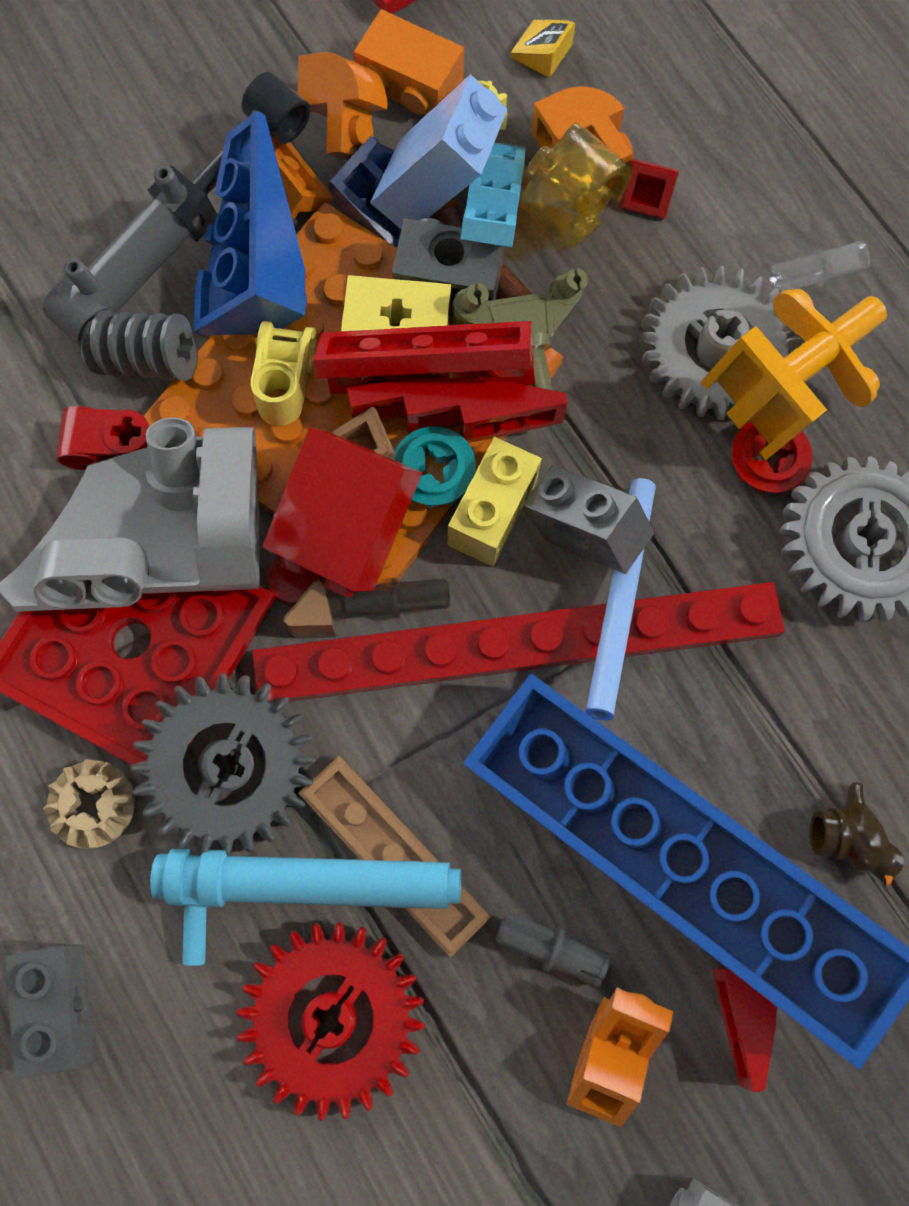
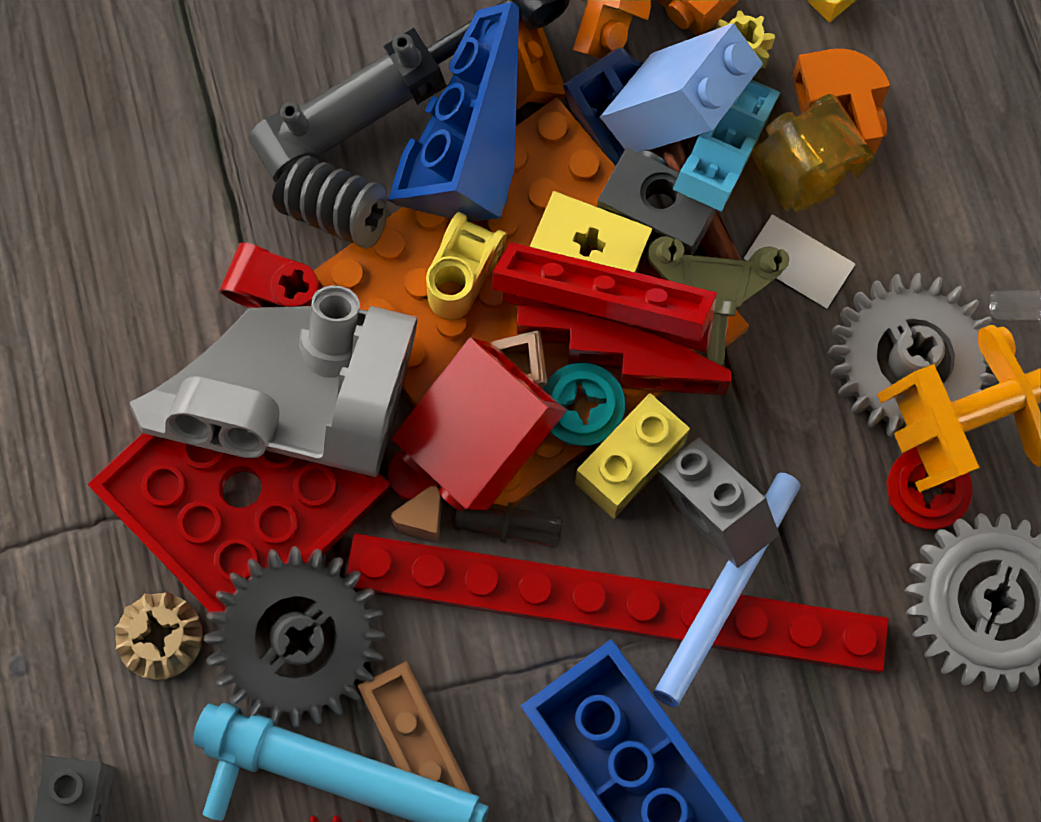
camera: 20 degrees right, 0 degrees up
(606, 293) = (812, 266): none -> white sticker
(649, 189) = (892, 174): red slope -> none

